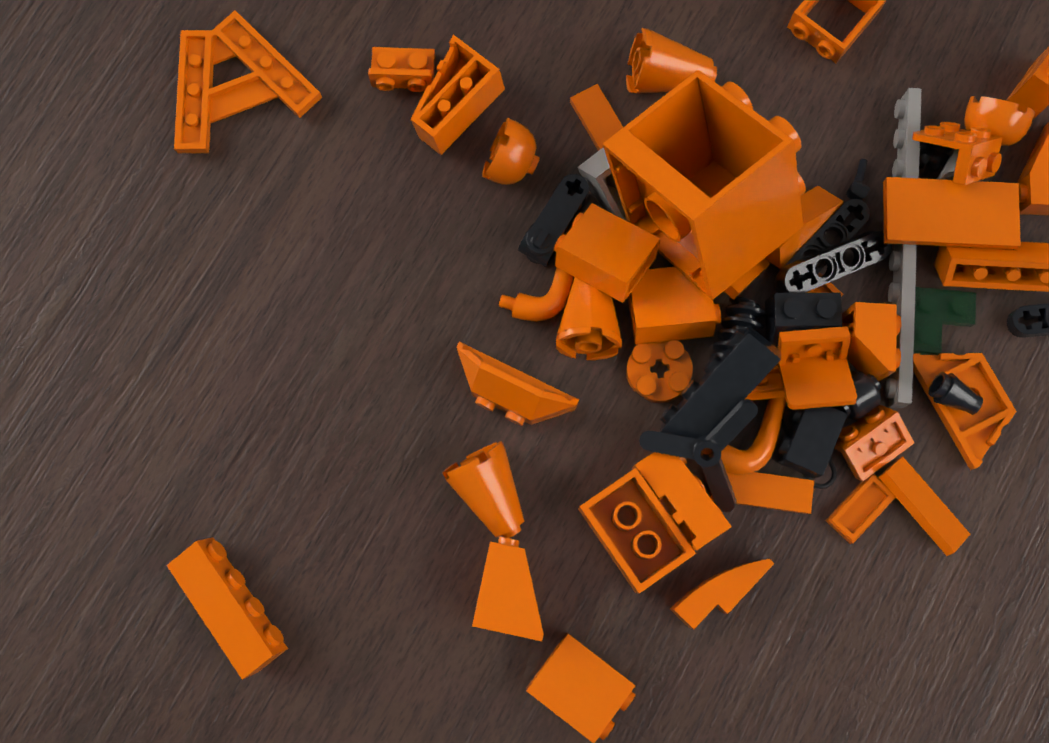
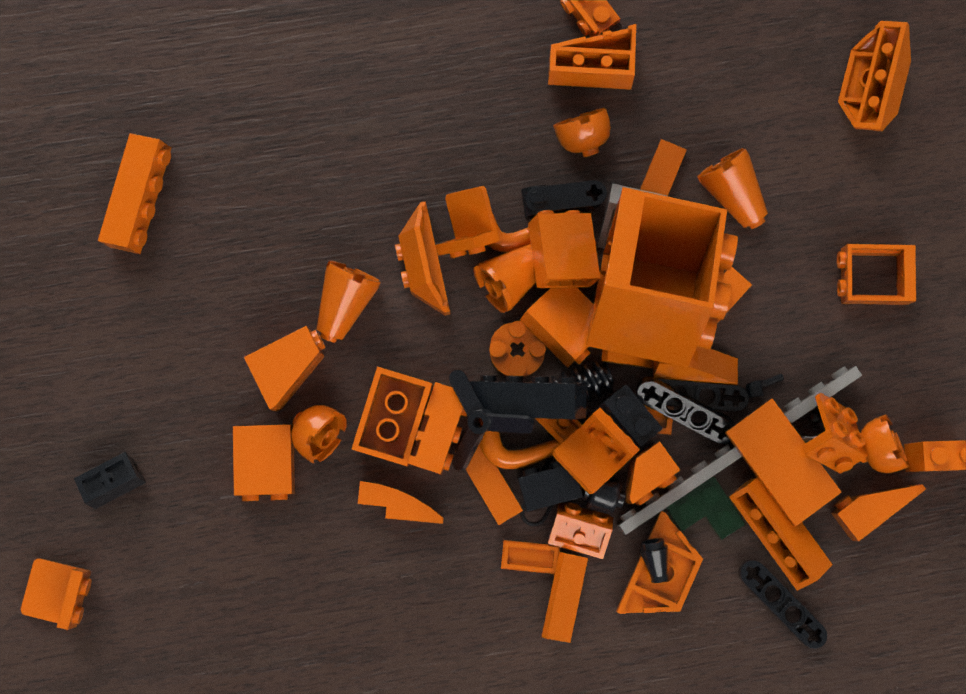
camera: 45 degrees right, 5 degrees up
(513, 316) = (471, 223): none -> orange bracket
(592, 615) = (316, 432): none -> orange cylinder

